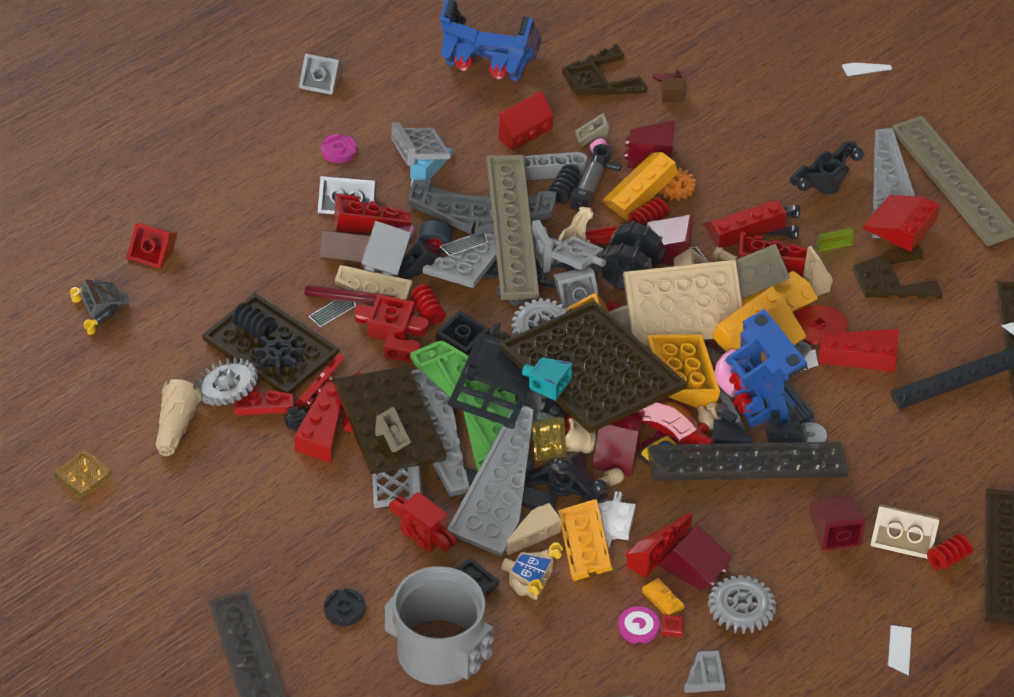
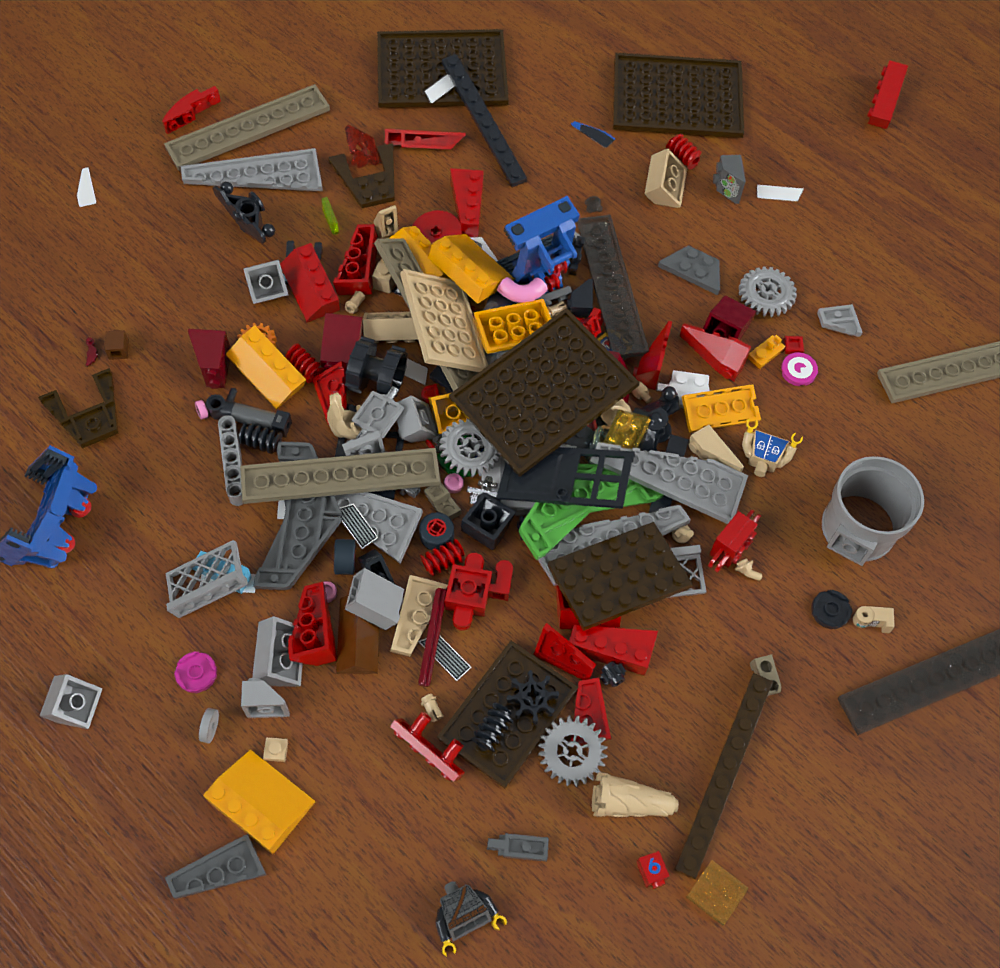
camera: 95 degrees left, 15 degrees up
(111, 429) = (653, 870): none -> red brick
(148, 344) = (520, 847): none -> dark grey hinge
(151, 245) = (365, 866): red slope -> none
(168, 161) = (221, 868): none -> dark grey wing
(189, 489) = (723, 776): none -> dark brown plate
(218, 182) = (259, 800): none -> light orange slope
(245, 286) = (420, 744): none -> red plate
(262, 196) = (275, 749): none -> tan plate
(278, 536) = (766, 668): none -> dark tan leg
(284, 293) = (431, 706): none -> tan pin
(286, 150) = (208, 725): none -> light grey piece
(303, 179) = (261, 700): none -> light grey slope
(327, 644) = (875, 617): none -> tan leg
(391, 427) = (652, 562): dark tan slope -> none
(396, 536) = (745, 566): none -> tan plate
(438, 491) = (682, 534): none -> tan plate
(457, 299) = (433, 537): none -> black wheel
(484, 579) = (777, 495): black plate -> none
(492, 313) = (442, 501): none -> dark tan slope
(507, 322) = (453, 483): none -> bright pink tile
(525, 121) = (169, 476): red slope -> none
(548, 376) = (579, 418): teal torso -> none
(594, 129) = (180, 412): dark tan slope -> none
(645, 488) = (652, 361): none -> red wedge
(723, 412) = (564, 298): black arm -> none
(739, 184) = (265, 281): none -> light grey slope
(780, 547) = (694, 267): none -> dark grey wing
(837, 522) = (668, 222): dark red slope -> none
(866, 462) = (593, 204): none -> clear smoke plate
(903, 220) = (310, 159): red slope -> none
(906, 585) = (730, 177): none -> dark grey slope
(943, 262) = (361, 158): none -> clear red piece
(952, 318) = (423, 138): none -> red wedge
(973, 132) = (184, 110): none -> red slope
(976, 481) = (597, 135): none -> black sticker

